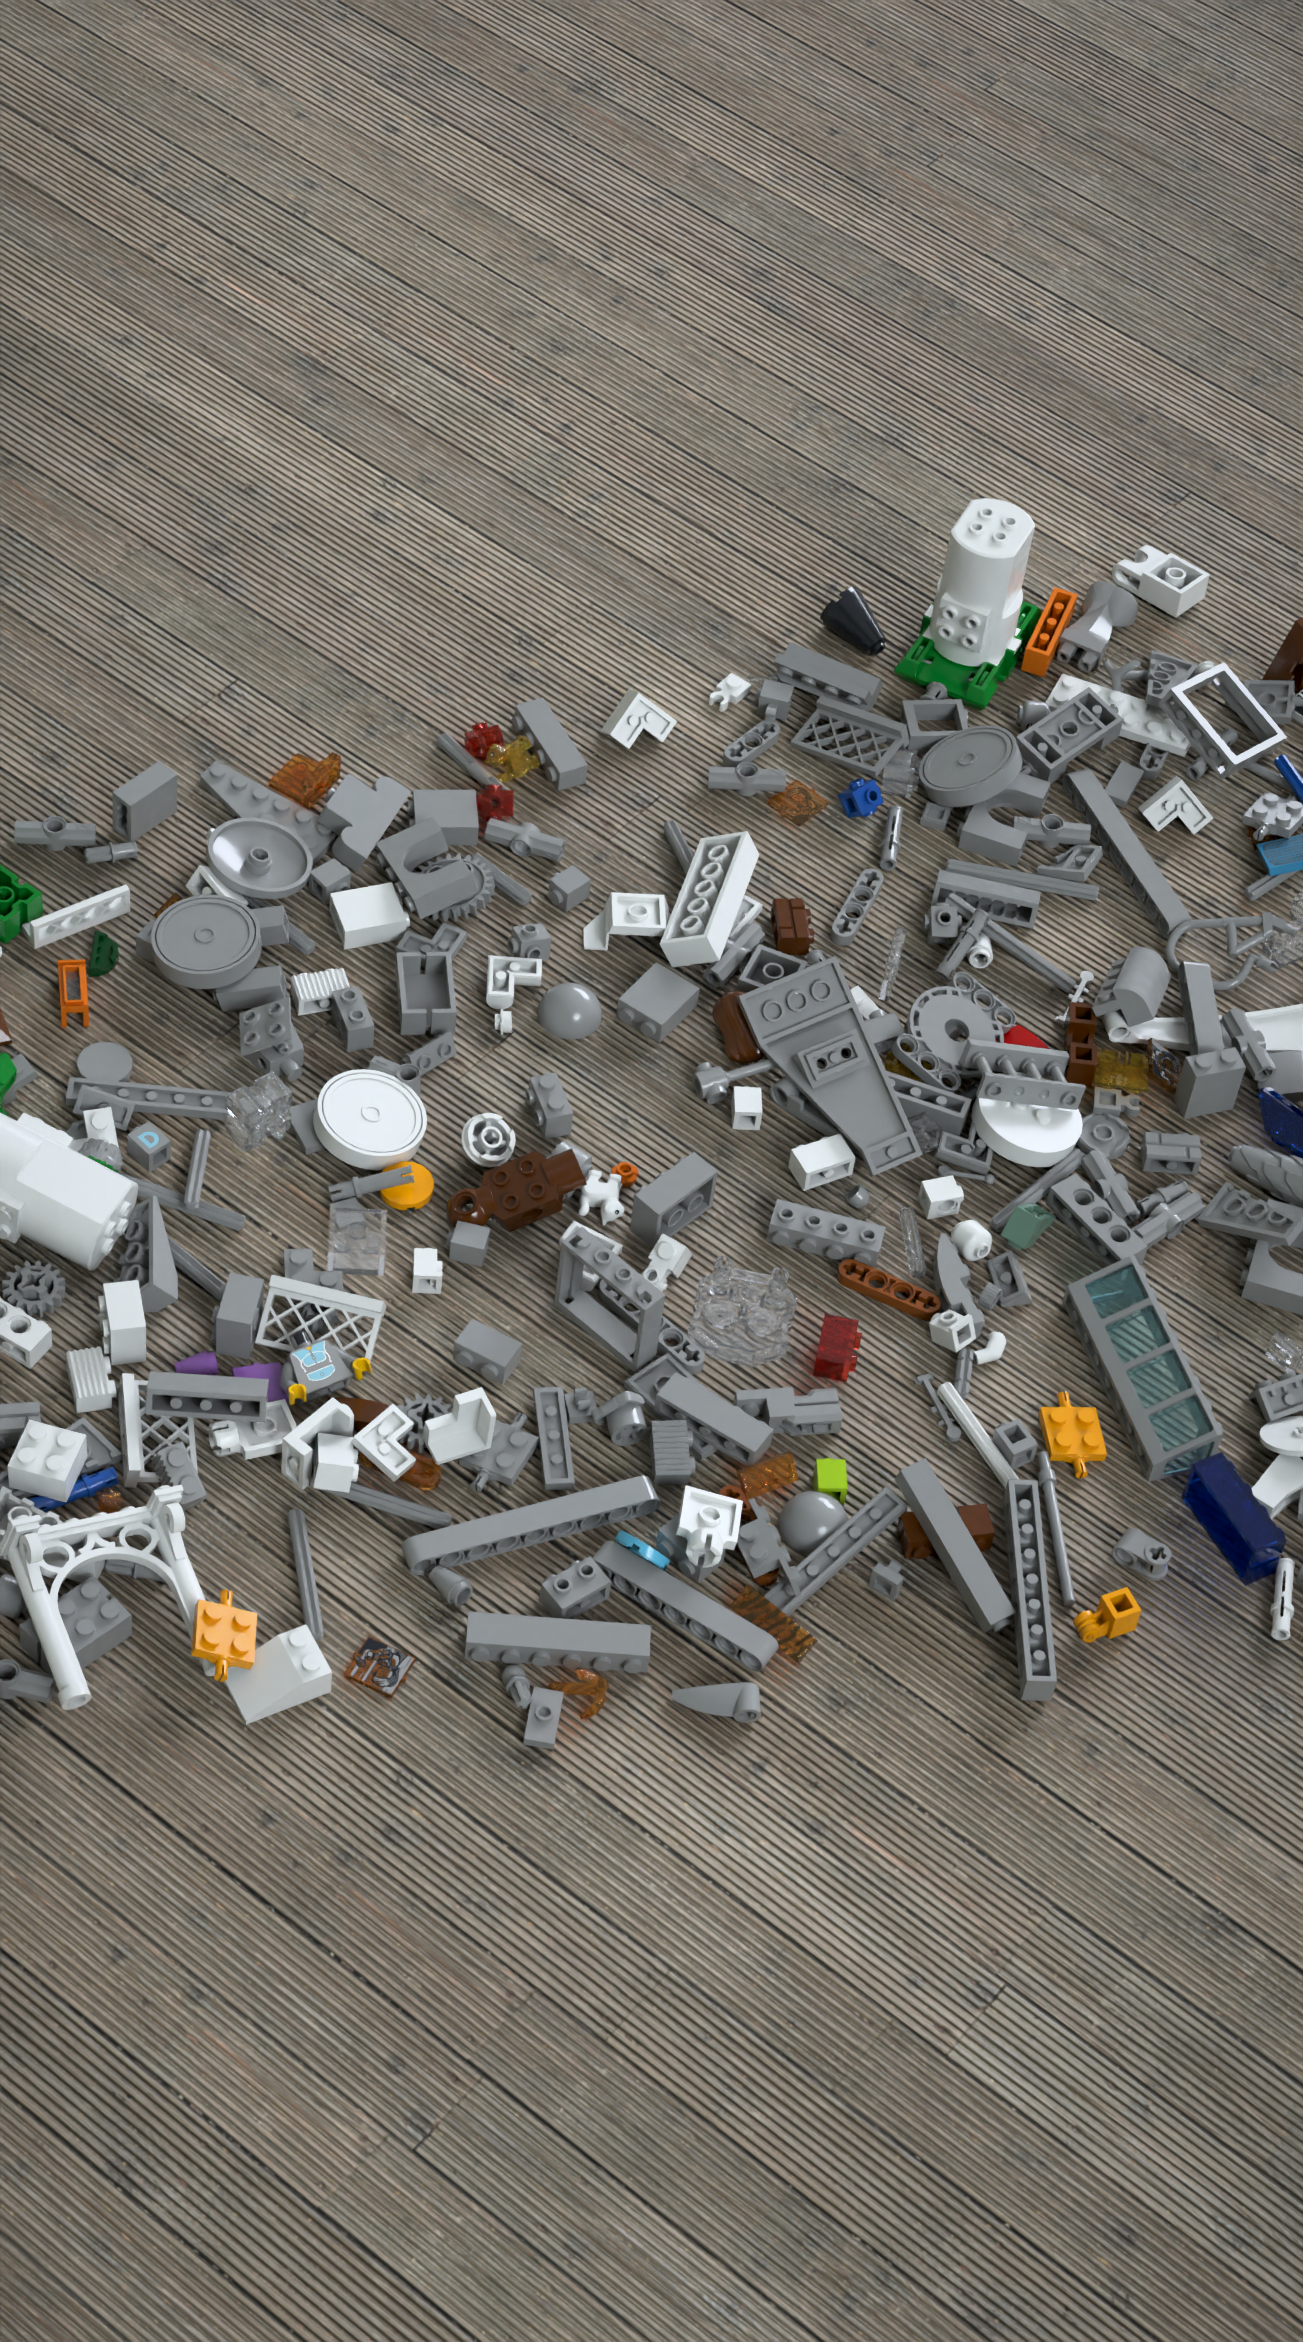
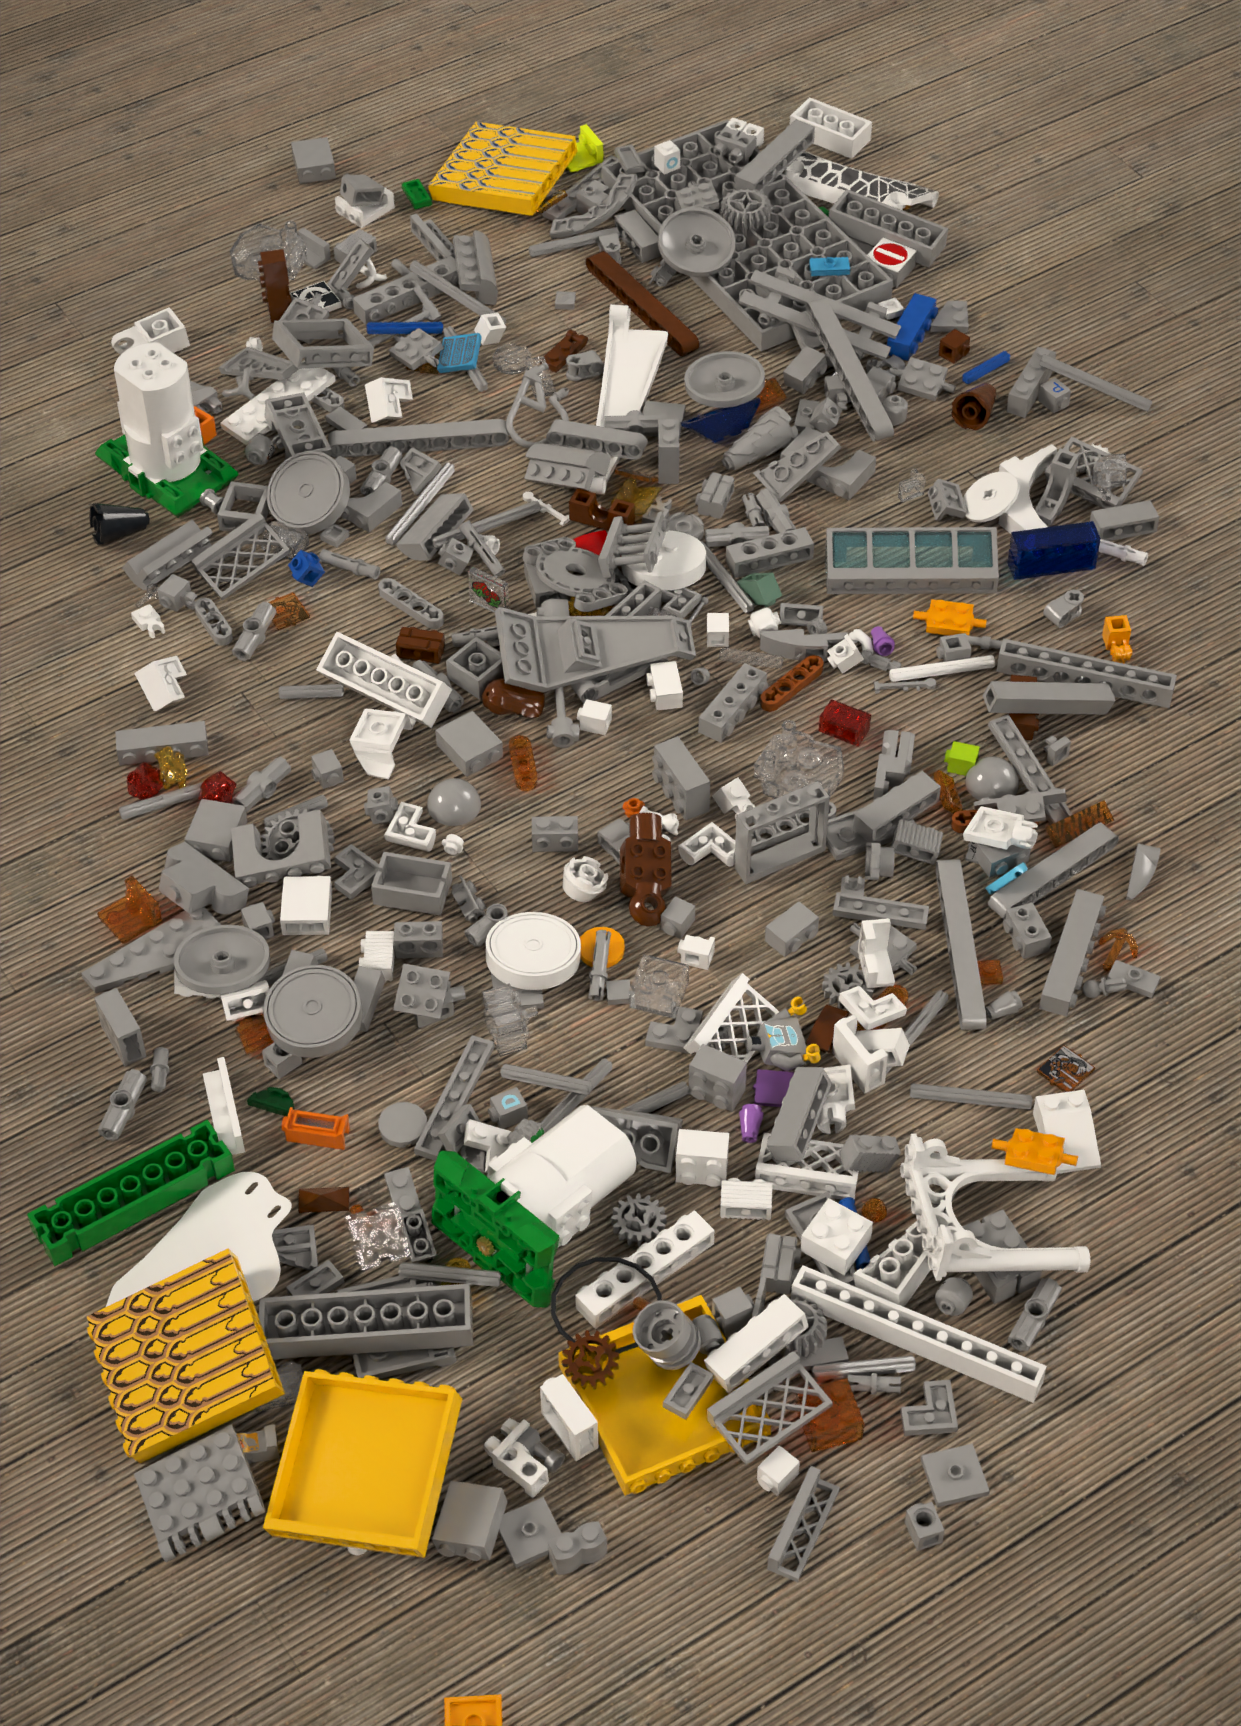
camera: 65 degrees left, 0 degrees up
(501, 1565) = (990, 972): none -> clear orange plate
(659, 1053) = (523, 763): none -> clear orange plate
(995, 1367) = (882, 642): none -> medium lavender cone

